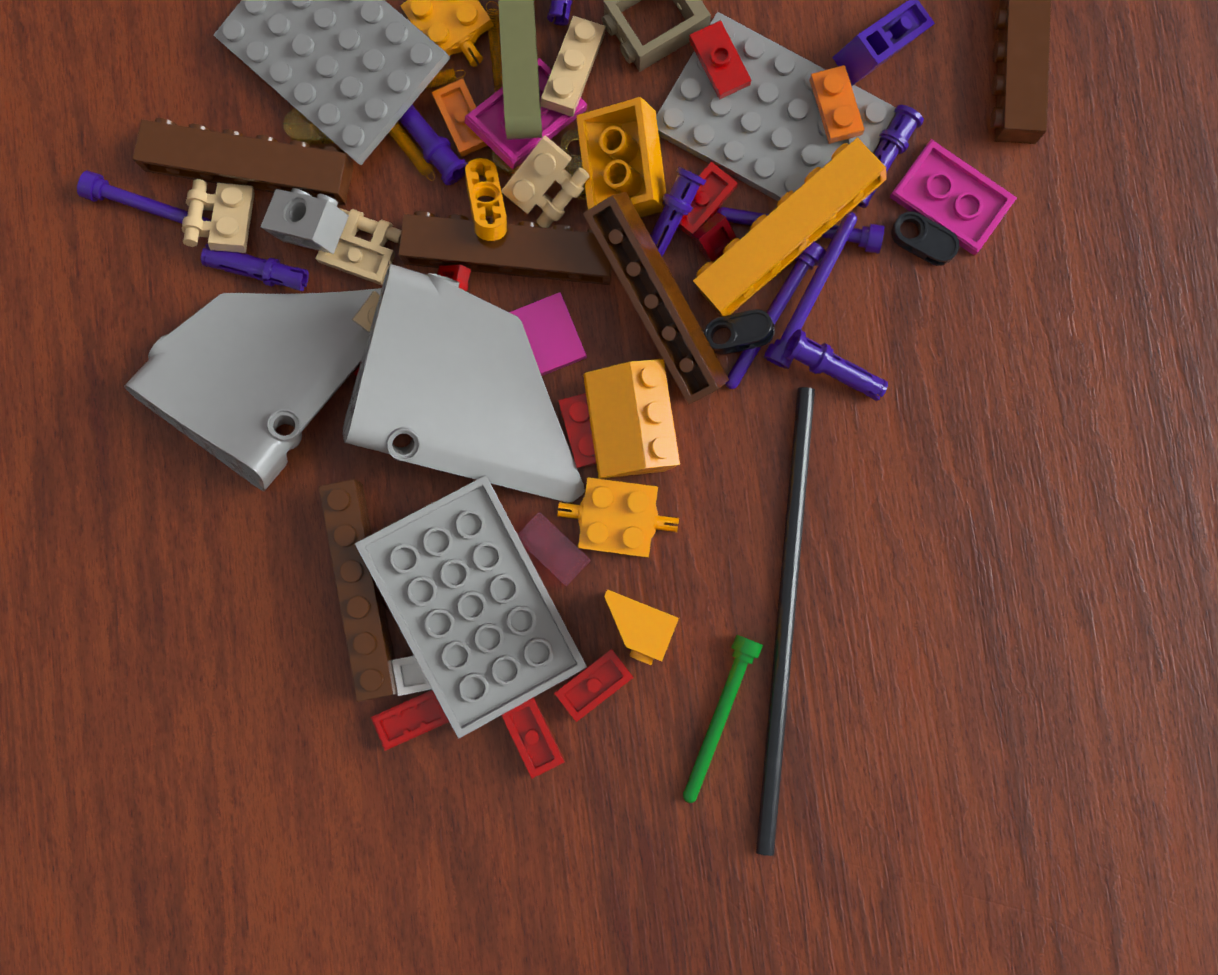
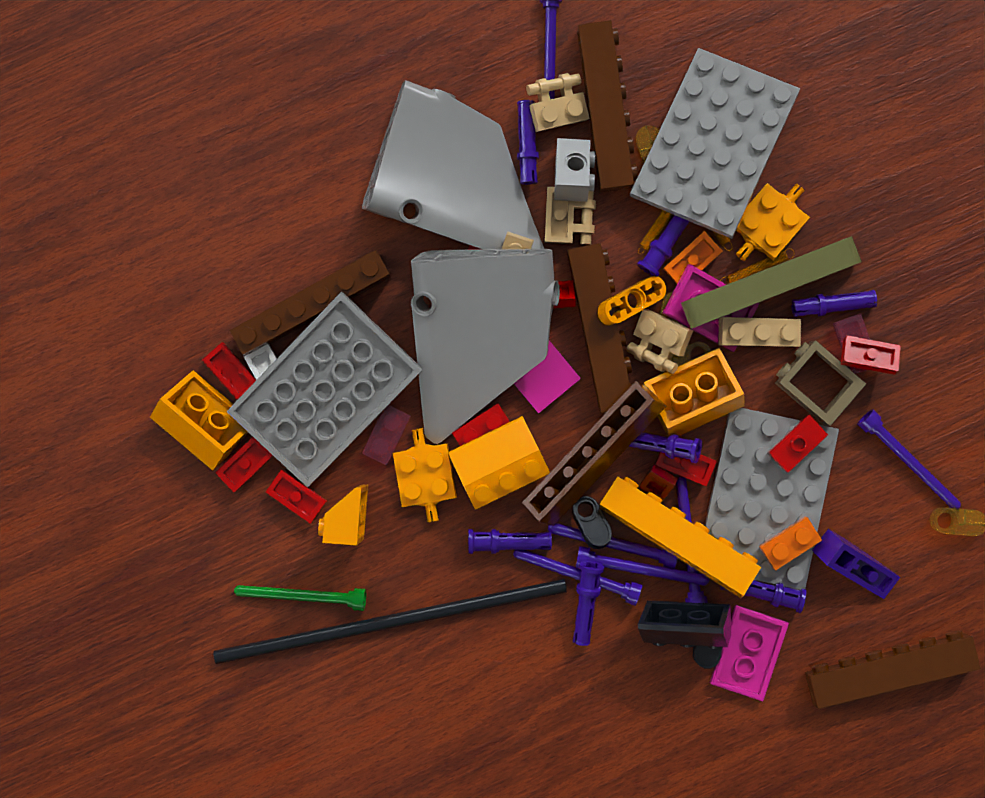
camera: 70 degrees right, 5 degrees up
(459, 777) = (198, 420): none -> light orange slope
(727, 455) = (496, 541): none -> dark purple pin
(837, 314) = (628, 591): none -> dark purple piece
(899, 251) = (686, 624): none -> black slope

